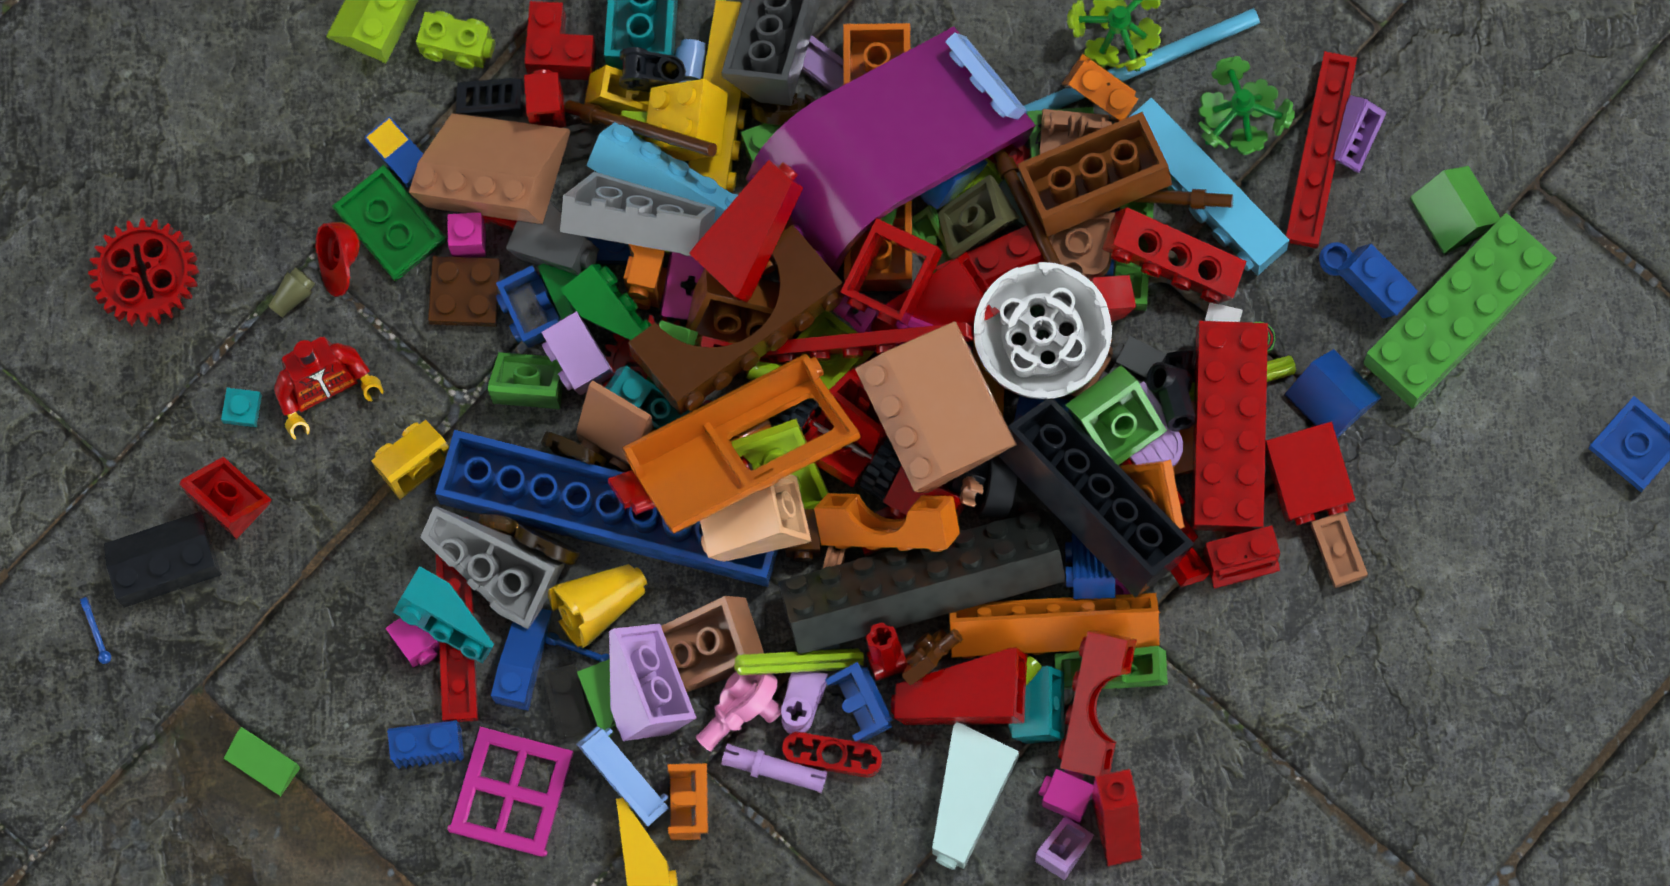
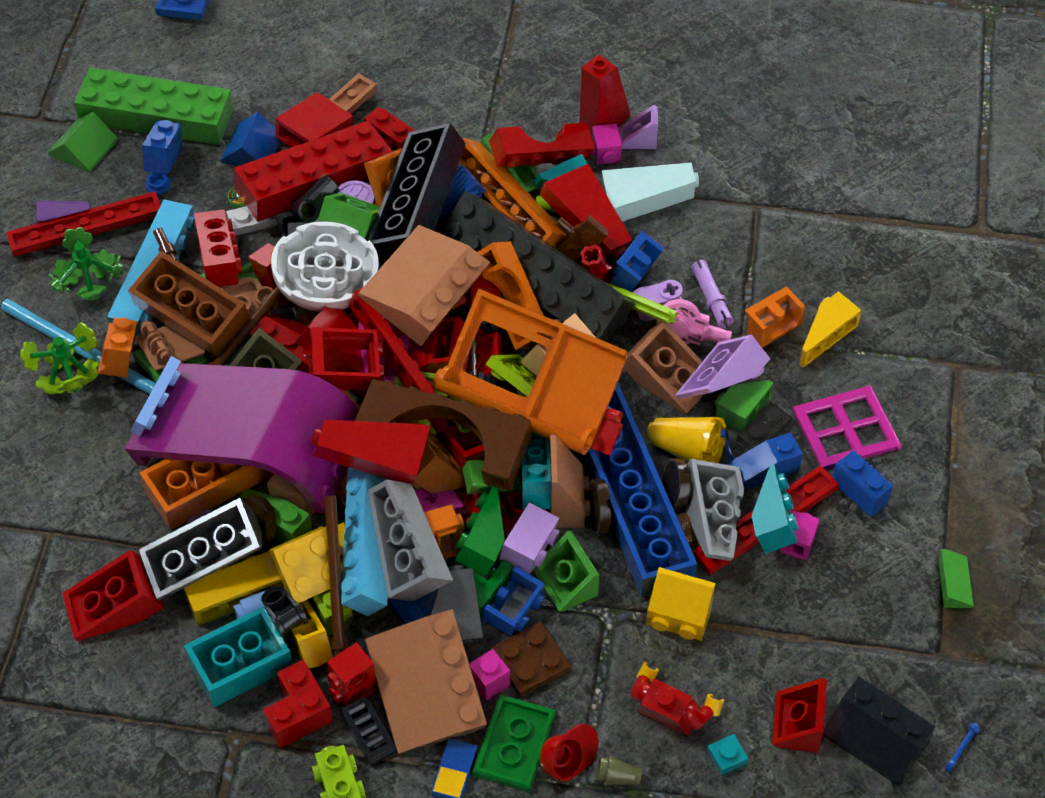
camera: 130 degrees left, 20 degrees down
(622, 775) = (788, 358): light blue container -> none
(820, 764) = (679, 261): red beam -> none

